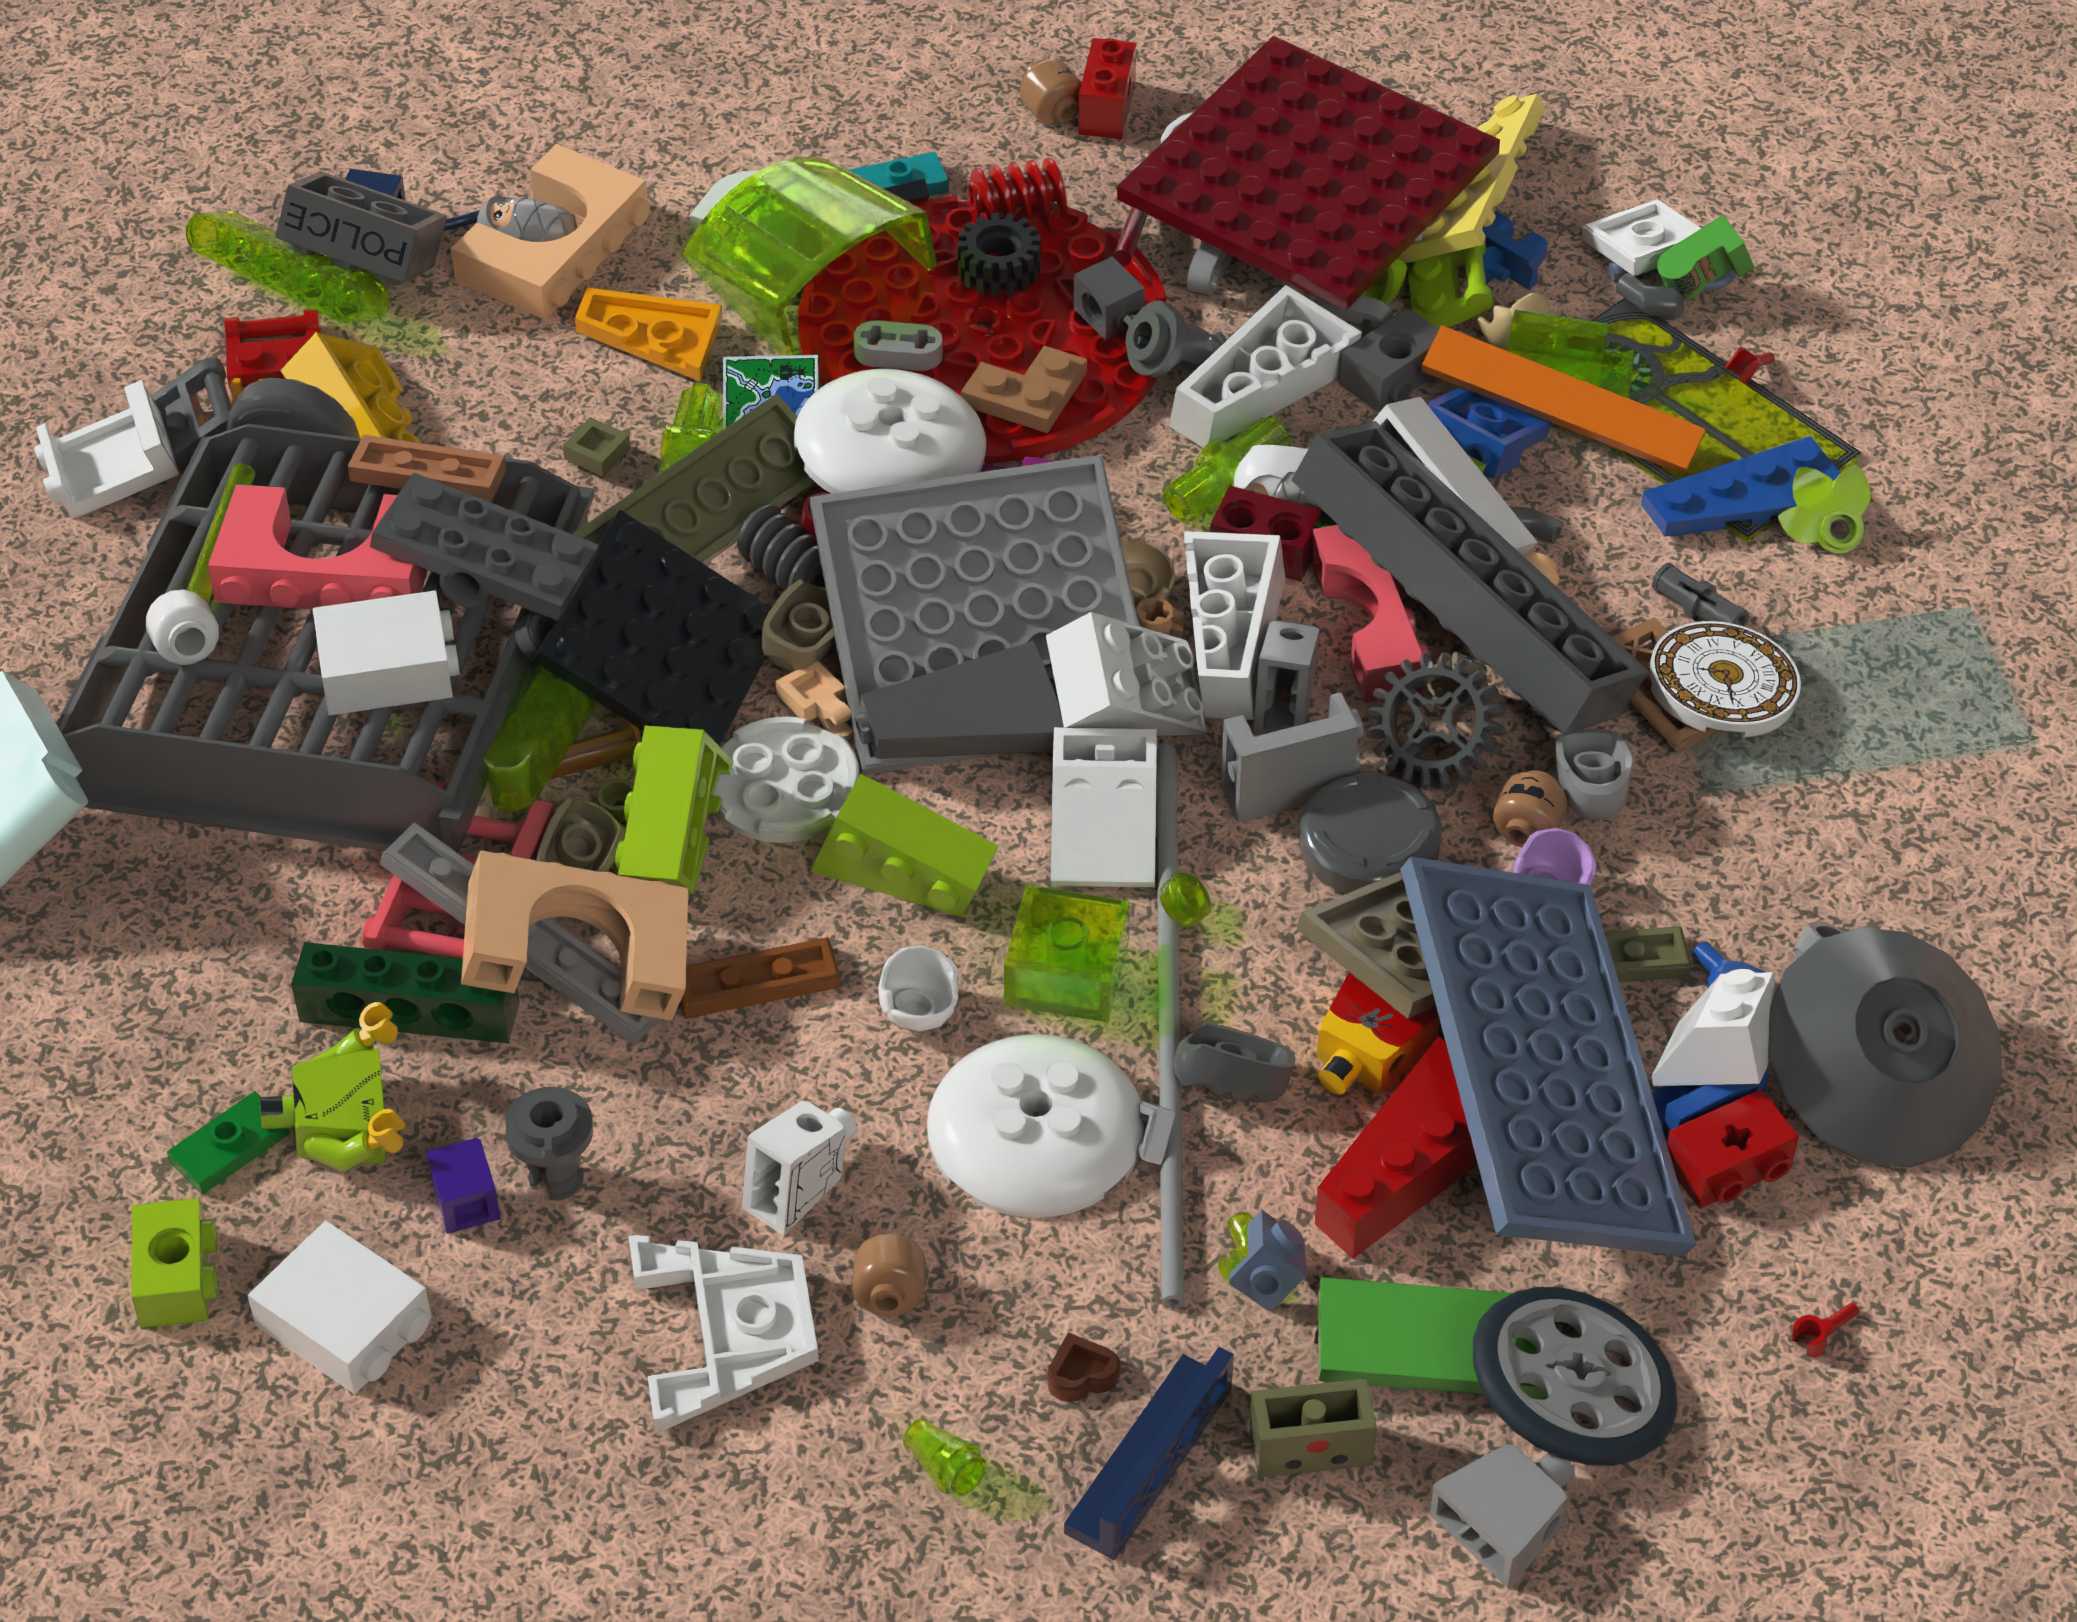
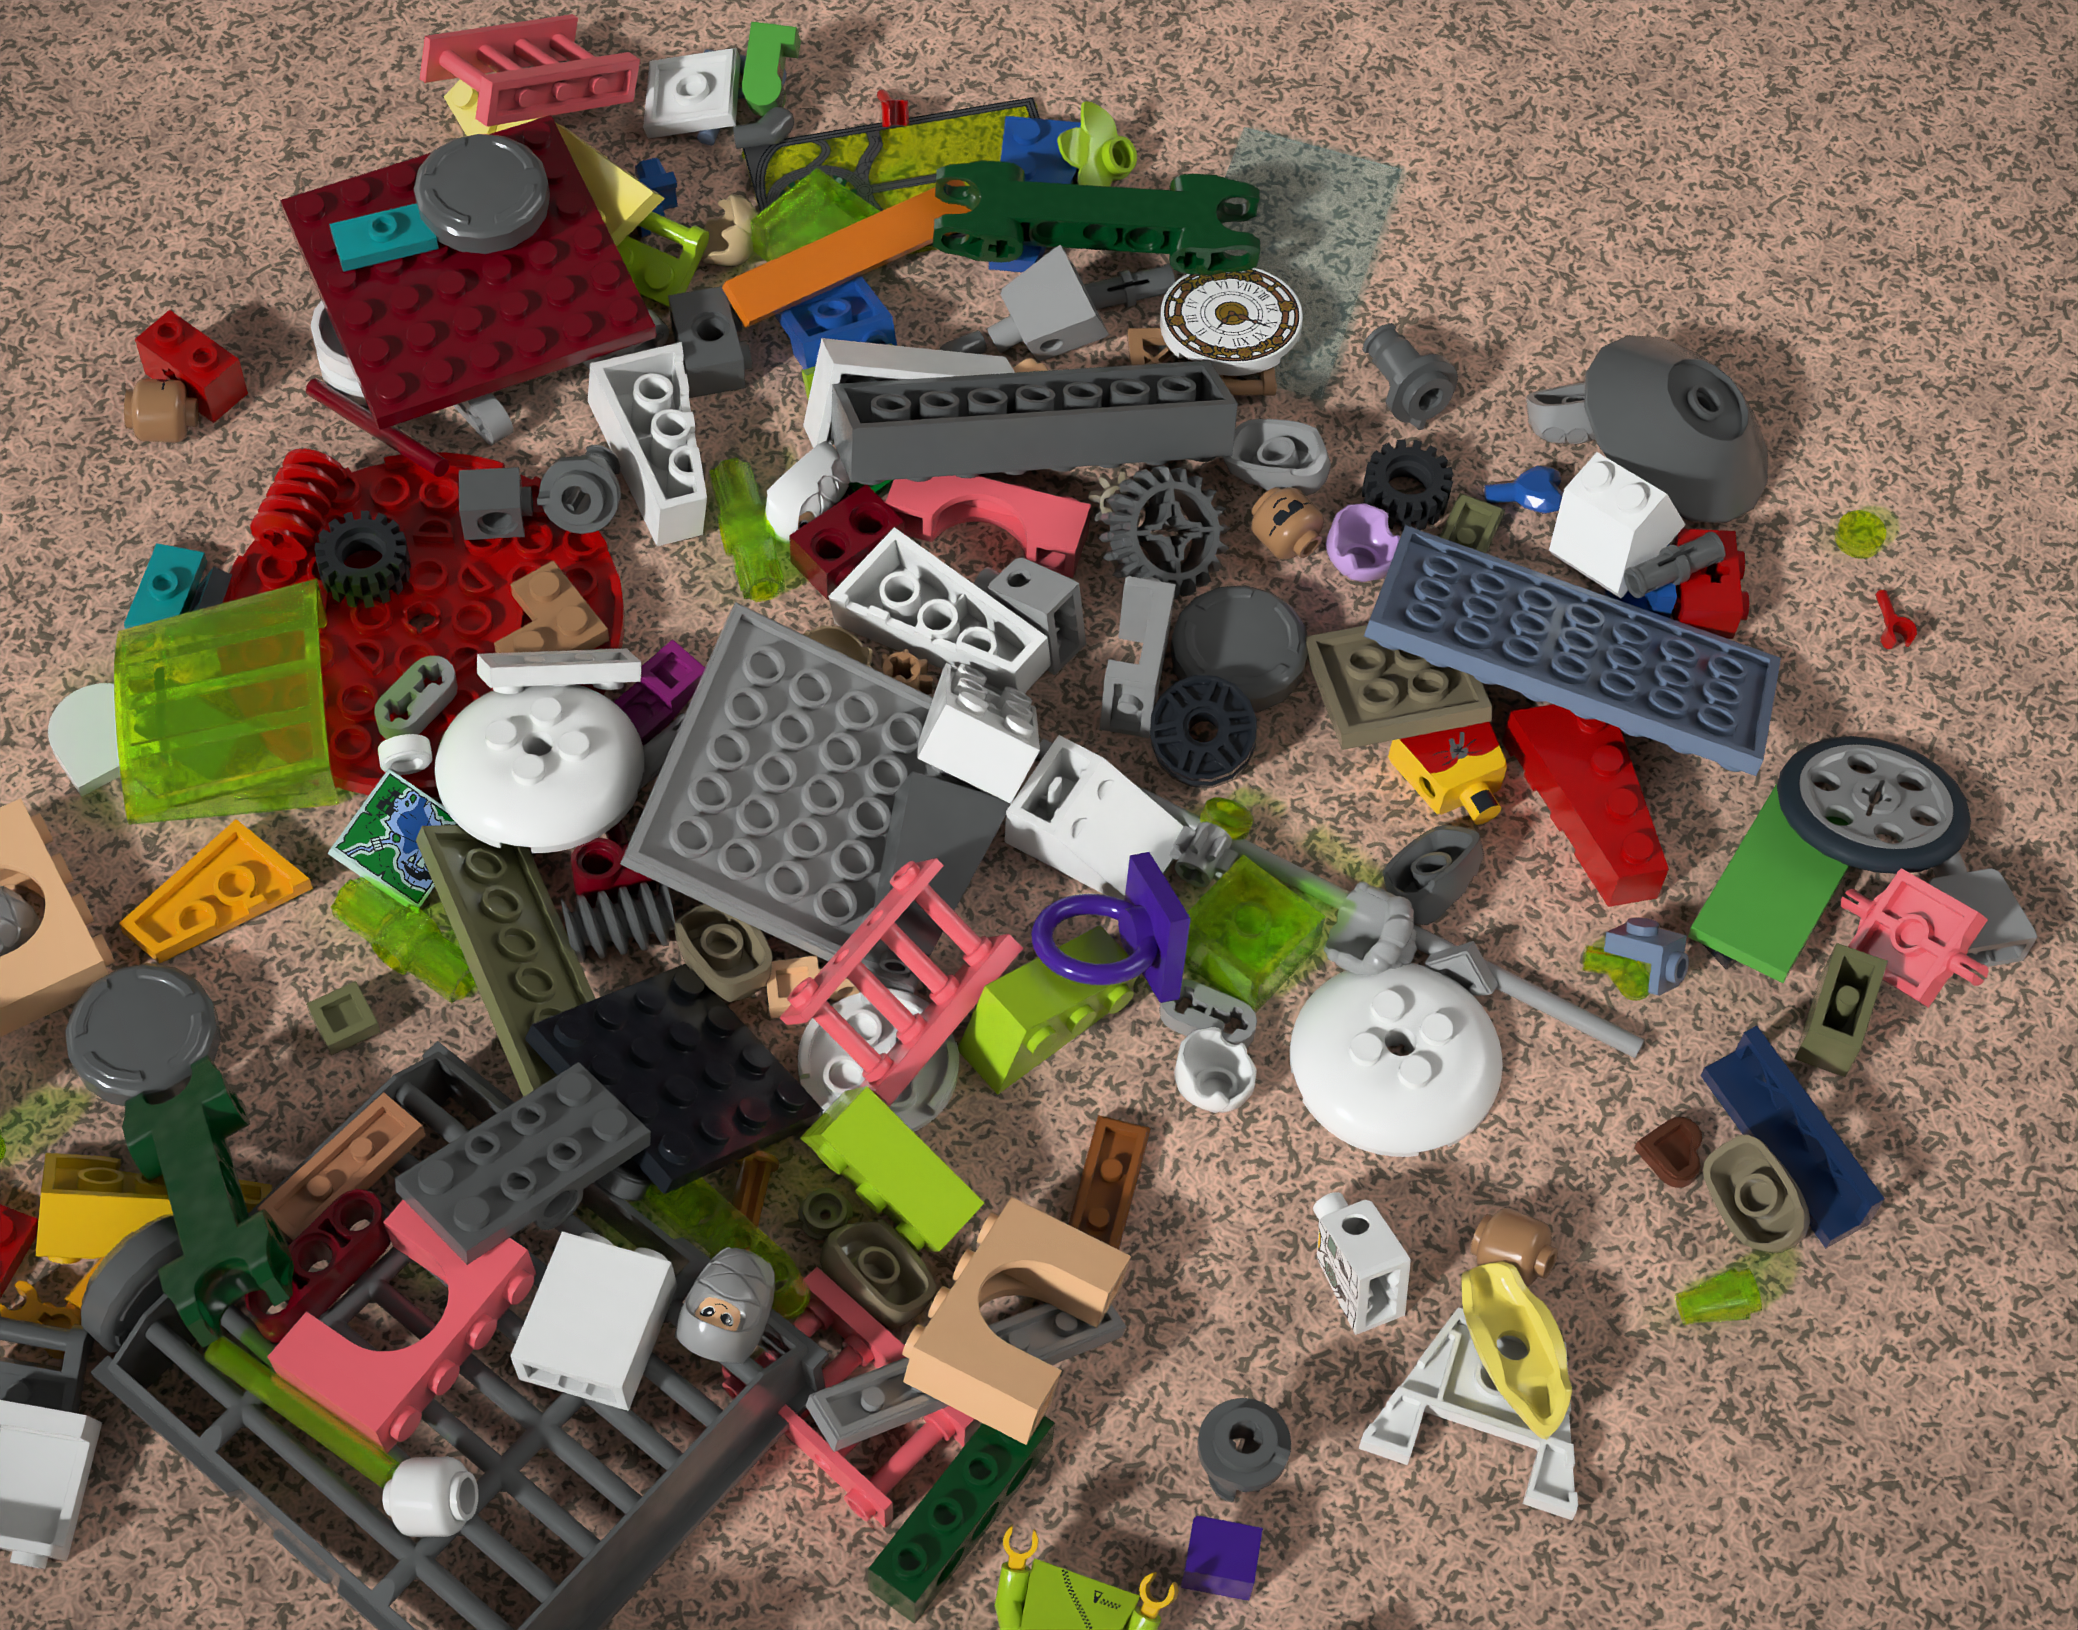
camera: 65 degrees left, 10 degrees up
(323, 418) = (220, 1243): none -> dark green piece
(333, 485) = (331, 1240): none -> dark red beam
(443, 726) = (727, 1307): none -> light grey piece
(505, 347) = (141, 1033): none -> dark grey piece
(745, 1325) = (1502, 1305): none -> light yellow piece
(805, 769) = (951, 994): none -> coral fence
(837, 357) = (405, 754): none -> white tile
(970, 973) = (1209, 1010): none -> light grey beam
(1005, 869) = (1150, 928): none -> dark purple tile
(1006, 430) = (601, 667): none -> white plate
(1065, 1439) = (1756, 1195): none -> dark tan piece
(1131, 1044) = (1372, 932): none -> light grey hair
(1134, 887) = (1203, 854): none -> light grey gear
(1253, 838) = (1211, 701): none -> black wheel
(1281, 99) = (382, 237): none -> teal plate
(1367, 127) = (482, 193): none -> dark grey piece
(1431, 1450) = (1919, 934): none -> coral plate
(1537, 134) = (535, 91): none -> coral fence
(1620, 549) = (1048, 310): none -> light grey torso
(1656, 860) = (1410, 463): none -> black tyre
(1703, 1092) = (1674, 564): none -> dark grey pin
(1769, 834) = (1417, 383): none -> dark grey piece
(1778, 583) = (1172, 221): none -> dark green piece
(1910, 1263) = (1860, 534): none -> clear neon green tile

